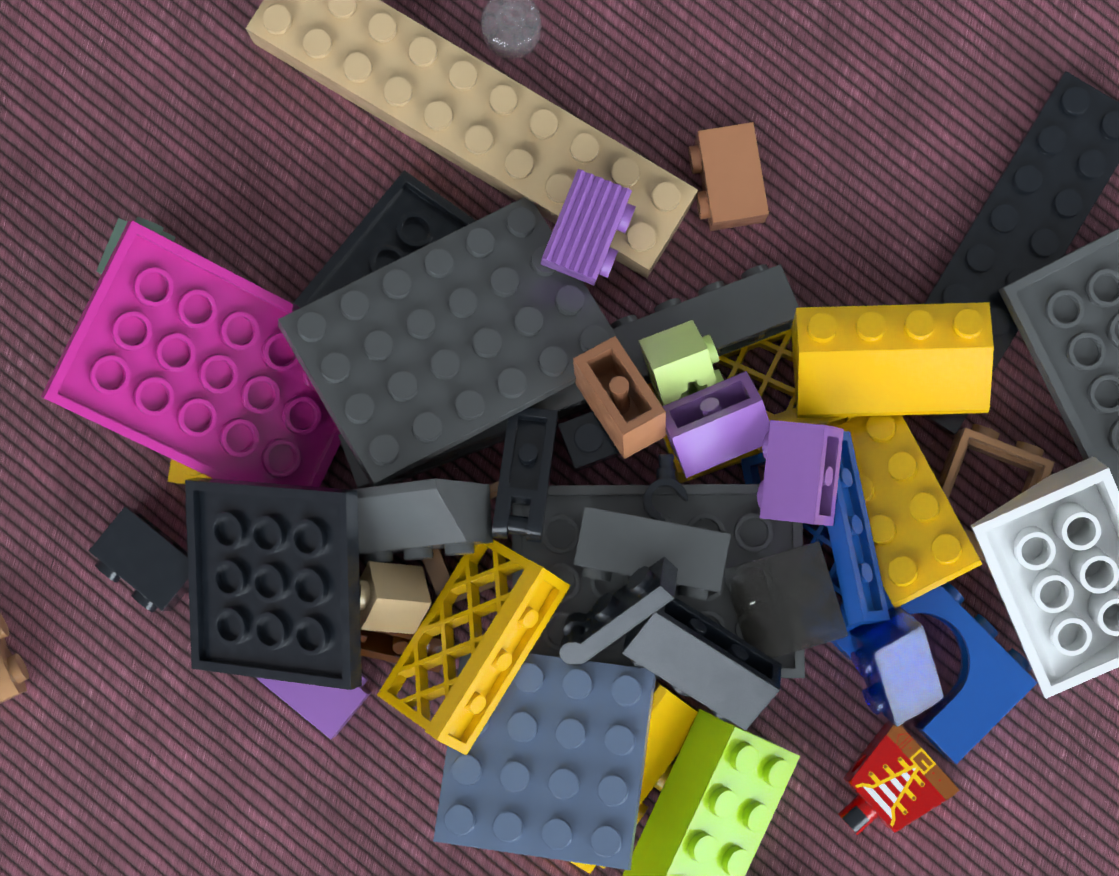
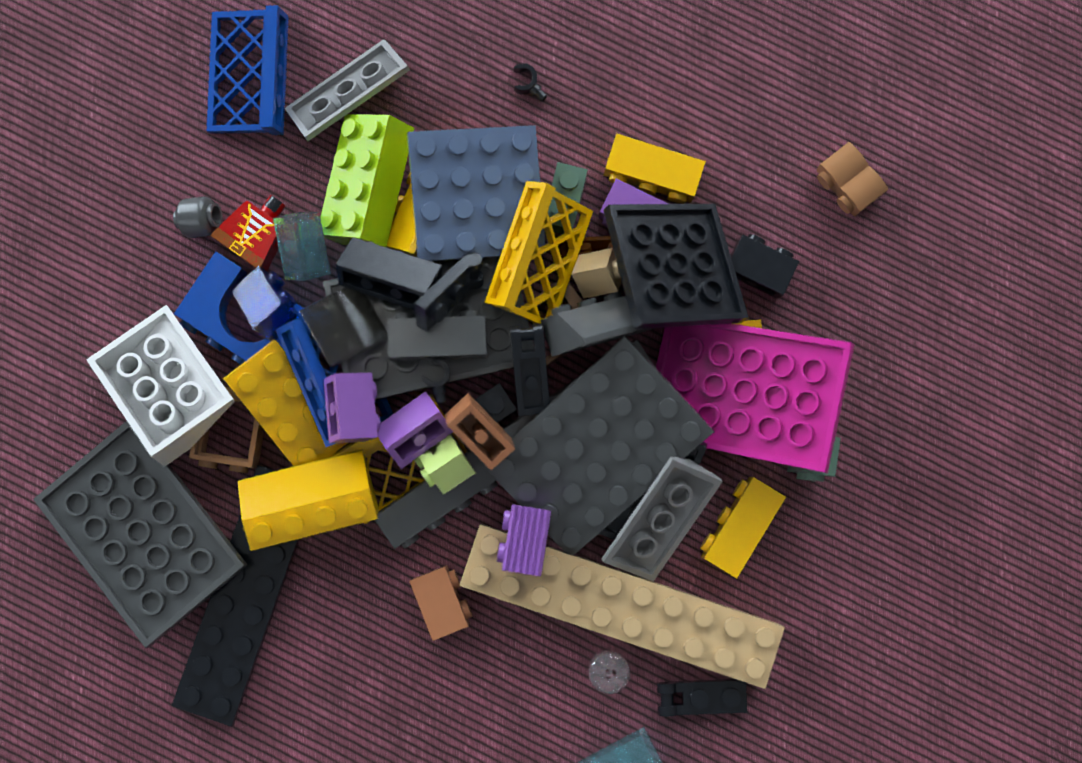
camera: 165 degrees right, 0 degrees up
(270, 743) = (654, 169): none -> yellow brick
(271, 186) = (741, 526): none -> yellow brick
(381, 218) = (662, 518): none -> light grey slope
(405, 743) = (570, 182): none -> sand green brick
(825, 742) = (302, 246): none -> clear light blue brick
(973, 826) = (197, 216): none -> dark grey head

